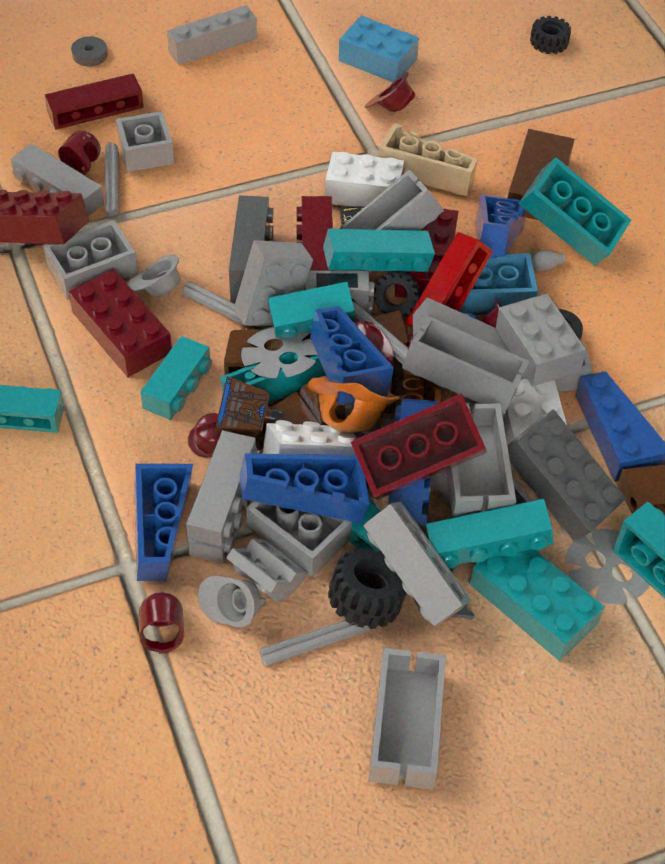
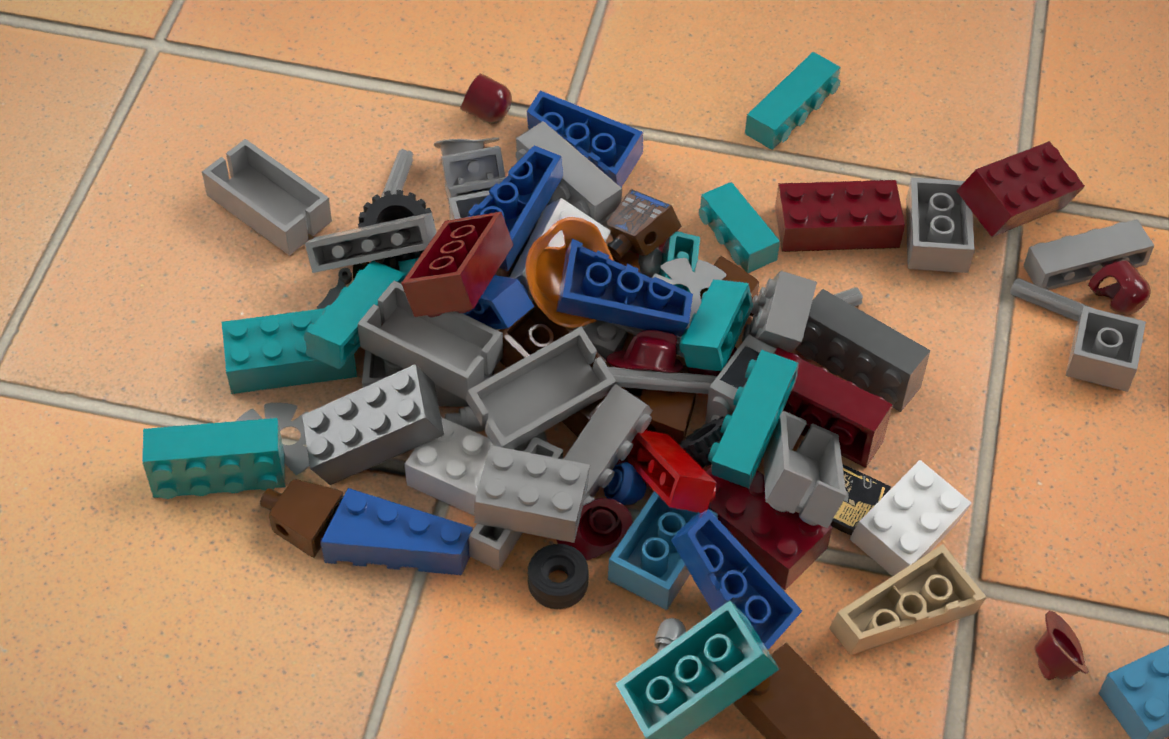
camera: 125 degrees right, 0 degrees up
(158, 278) = (880, 264): light grey piece -> none

